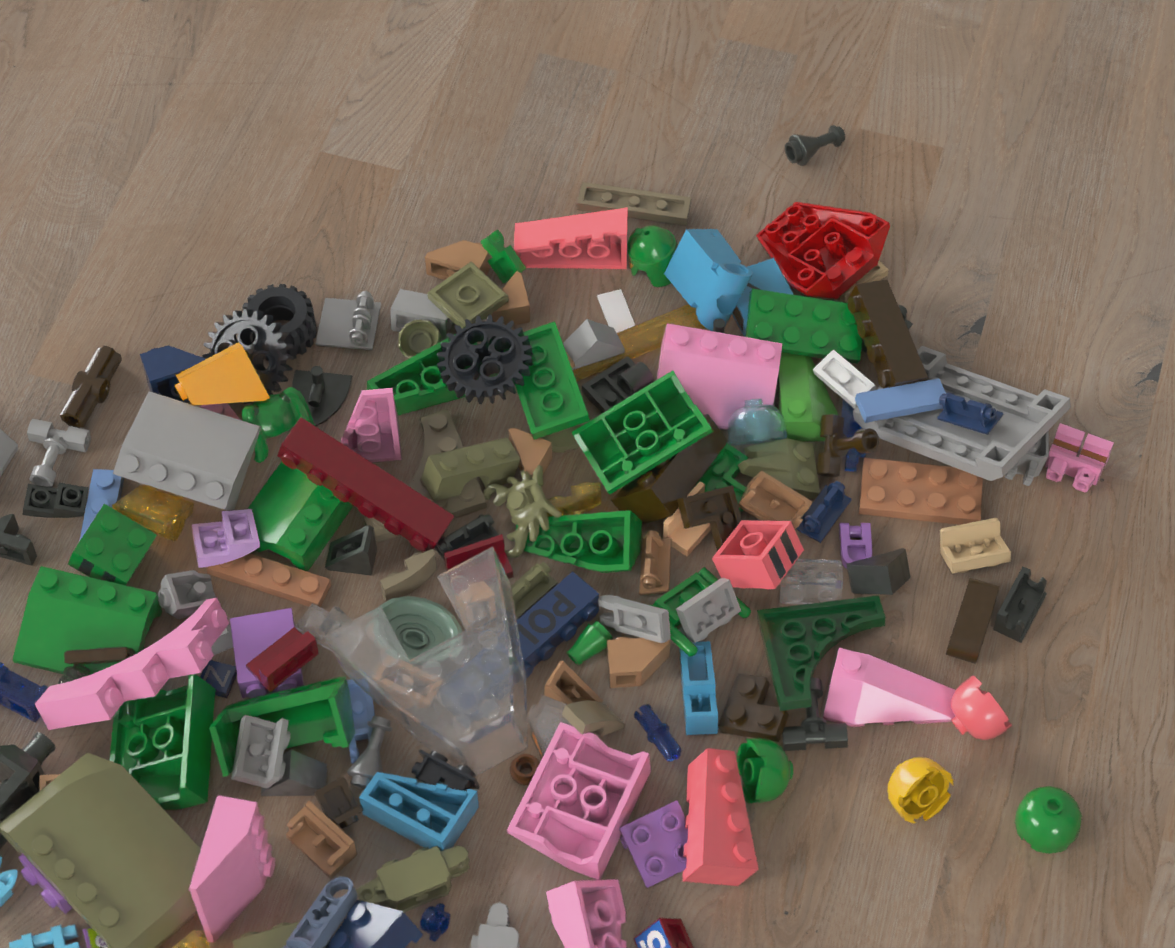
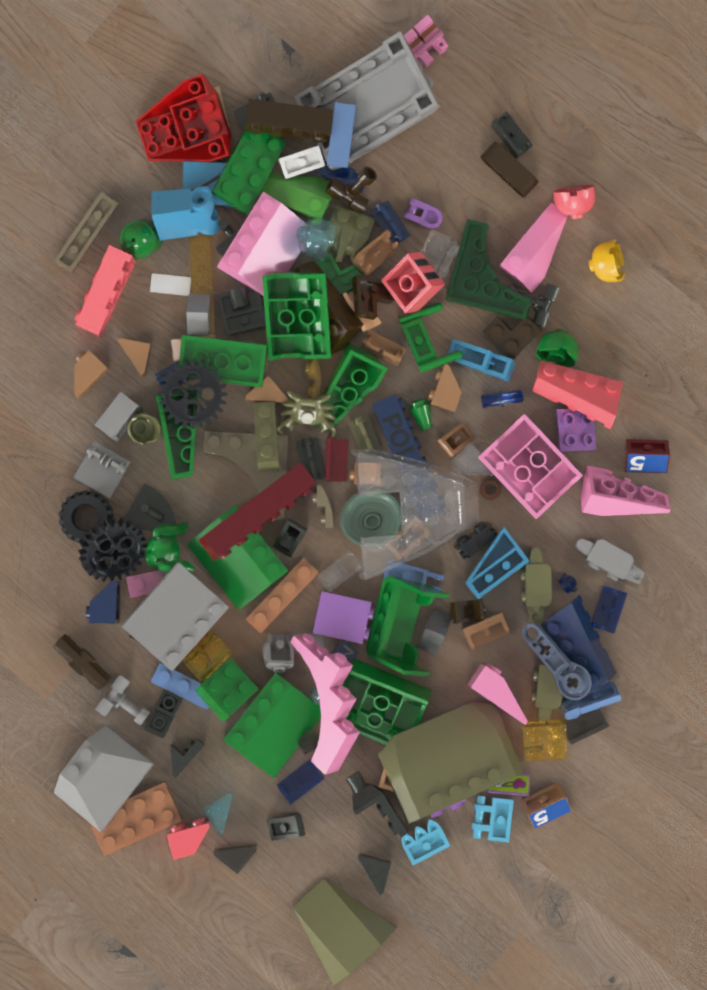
camera: 70 degrees left, 30 degrees up
(96, 656) = (305, 723): dark brown tile -> none
(222, 379) = (134, 575): light orange slope -> none
(225, 540) = (247, 614): lavender slope -> none
(260, 751) = (419, 646): light grey bracket -> none
(283, 658) = (358, 610): dark red panel -> none
(369, 761) = (451, 584): flat silver piece -> none
(374, 427) = (209, 487): bright pink wedge -> none
(467, 295) = (127, 382): olive tile -> none
(504, 260) = (103, 344): green plate -> none
(592, 716) = (480, 435): dark tan slope -> none
(635, 618) = (423, 380): light grey hinge -> none
(708, 610) = (437, 331): light grey bracket -> none
(802, 148) = (91, 93): pearl dark grey piece -> none
(879, 573) = (453, 210): pearl dark grey slope -> none
(920, 492) = (400, 157): nougat plate -> none
(968, 414) = (376, 99): dark blue hinge -> none
(973, 546) = (459, 142): tan bracket -> none
(1048, 819) = (657, 194): green cylinder -> none

